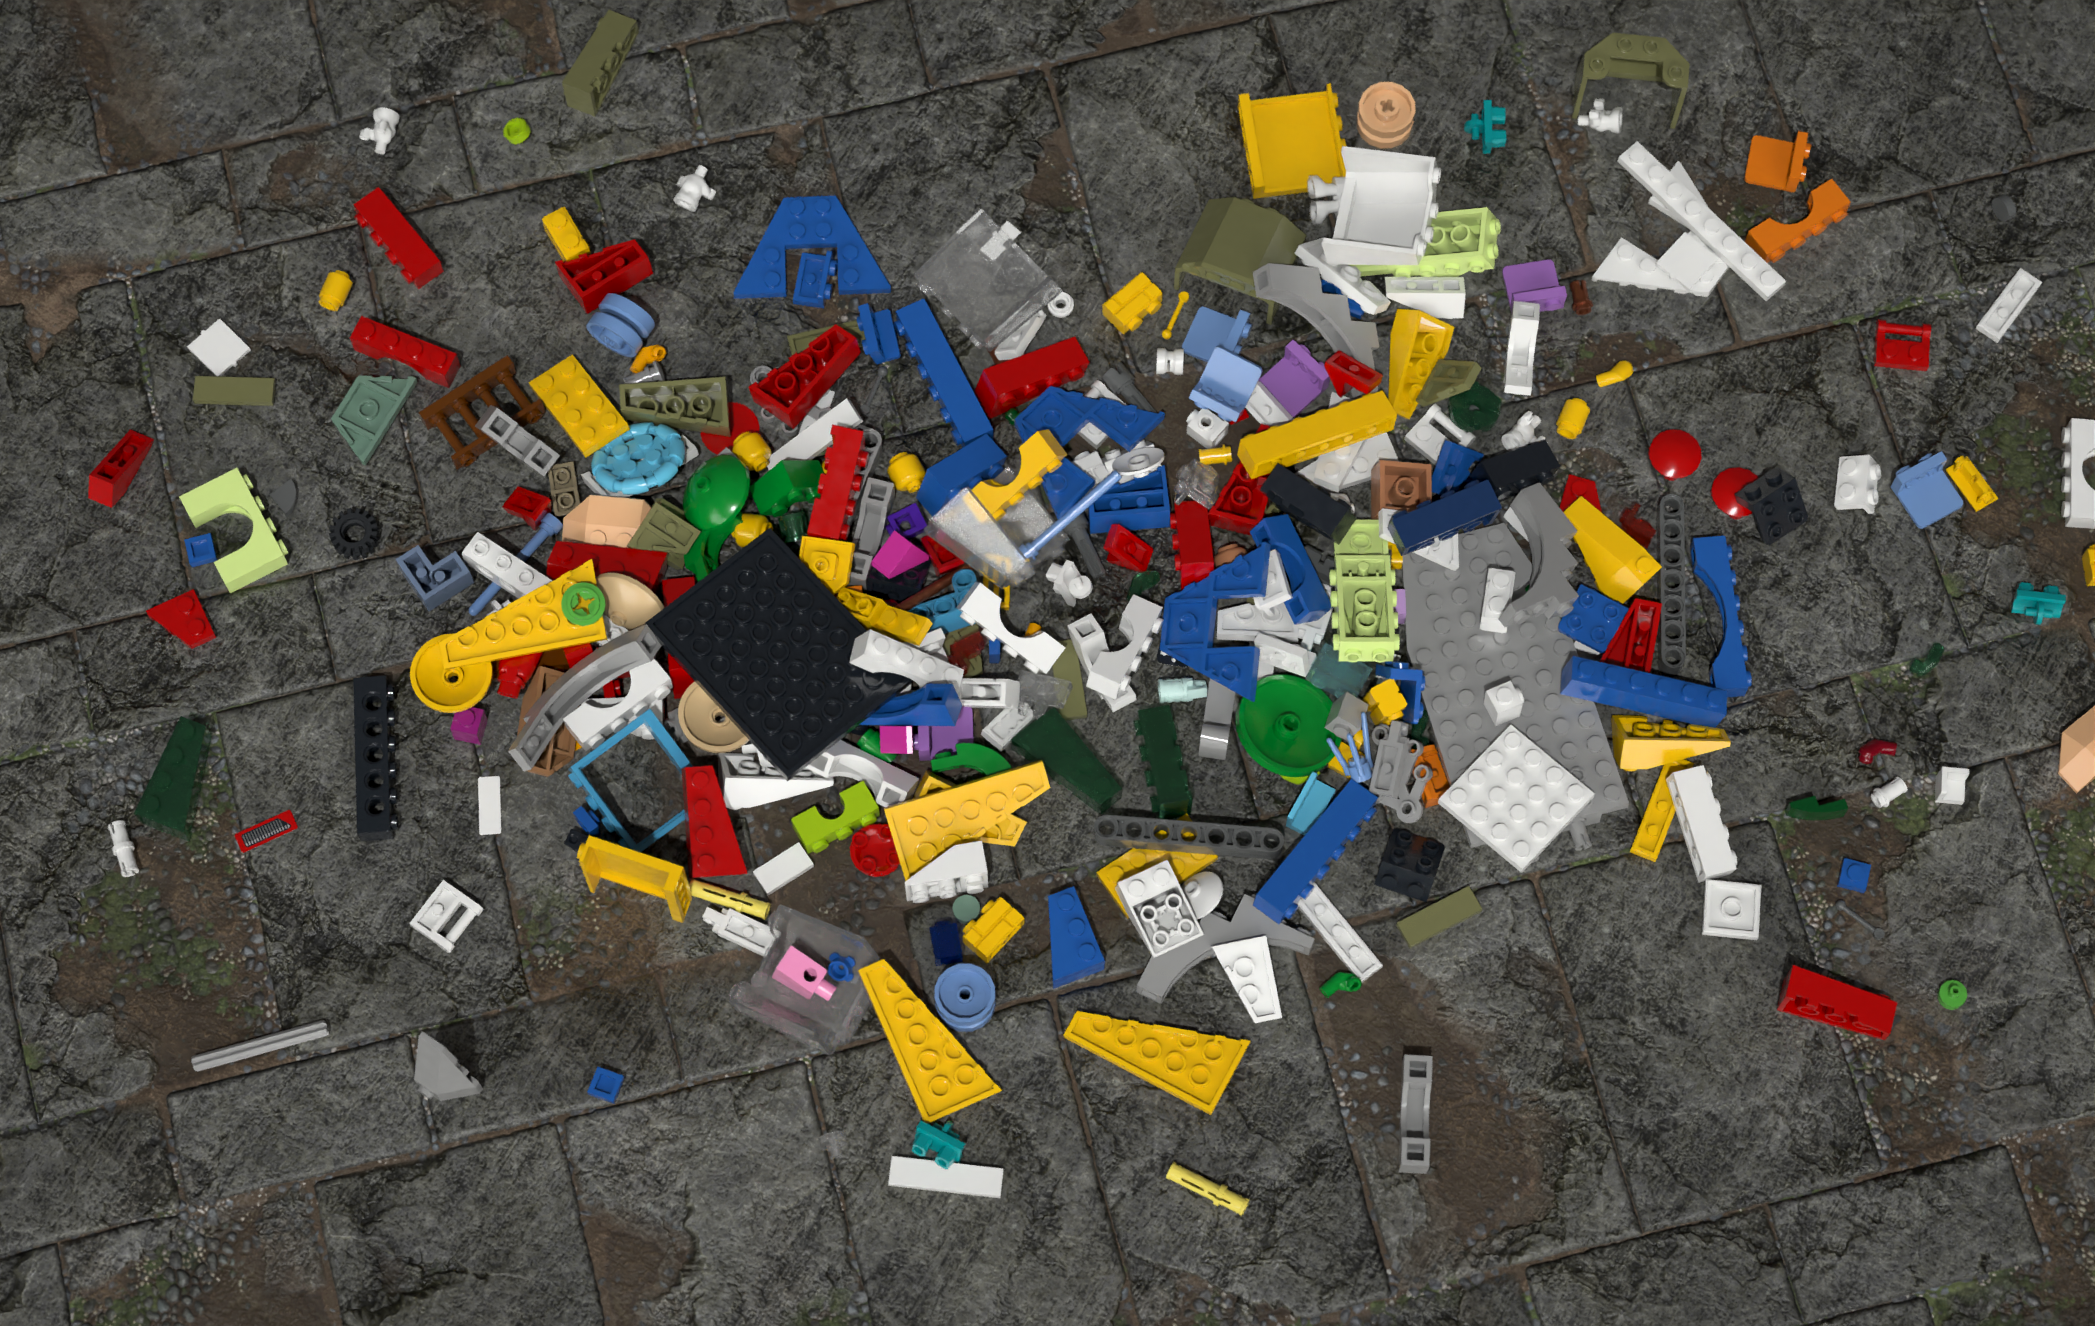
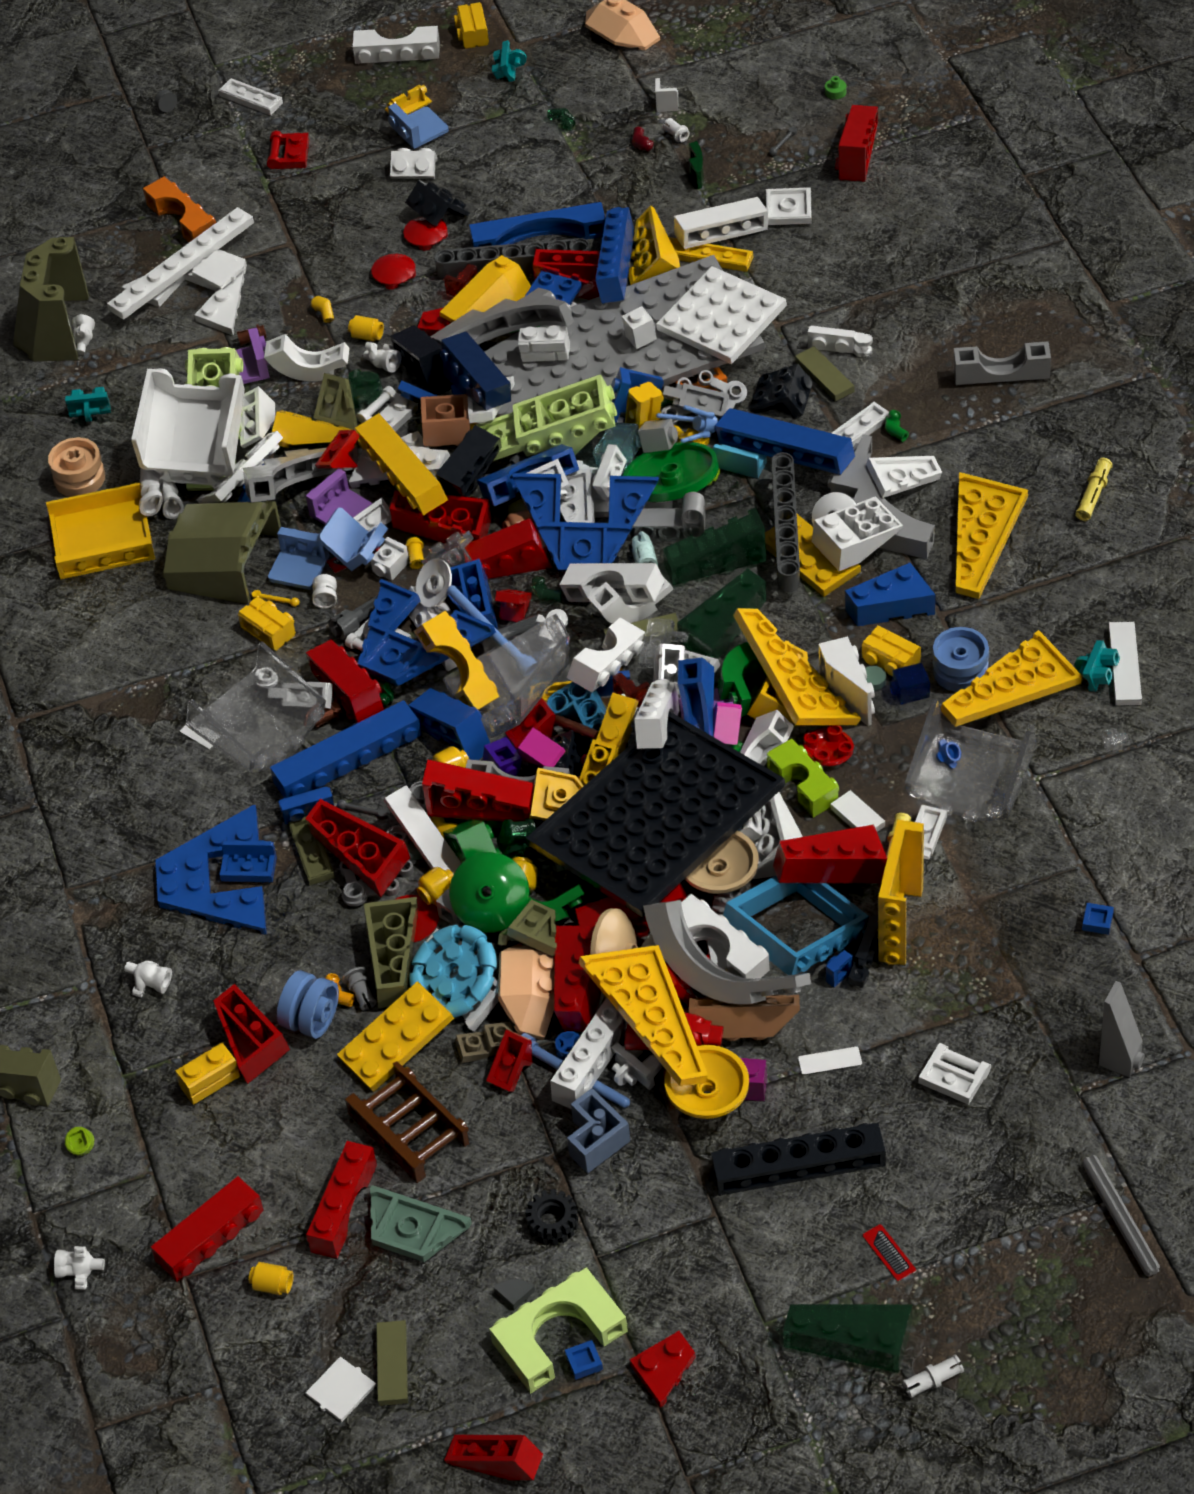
camera: 90 degrees left, 20 degrees down
(517, 440) = (440, 1073): light grey arch -> none
(538, 557) = (564, 1042): none -> blue wheel
(588, 592) = (629, 948): bright green gear -> none
(794, 968) = (967, 765): bright pink torso -> none
(1483, 940) = (840, 341): none -> white hinge
(1777, 162) = (124, 224): orange bracket -> none
(1854, 875) = (747, 145): blue plate -> none

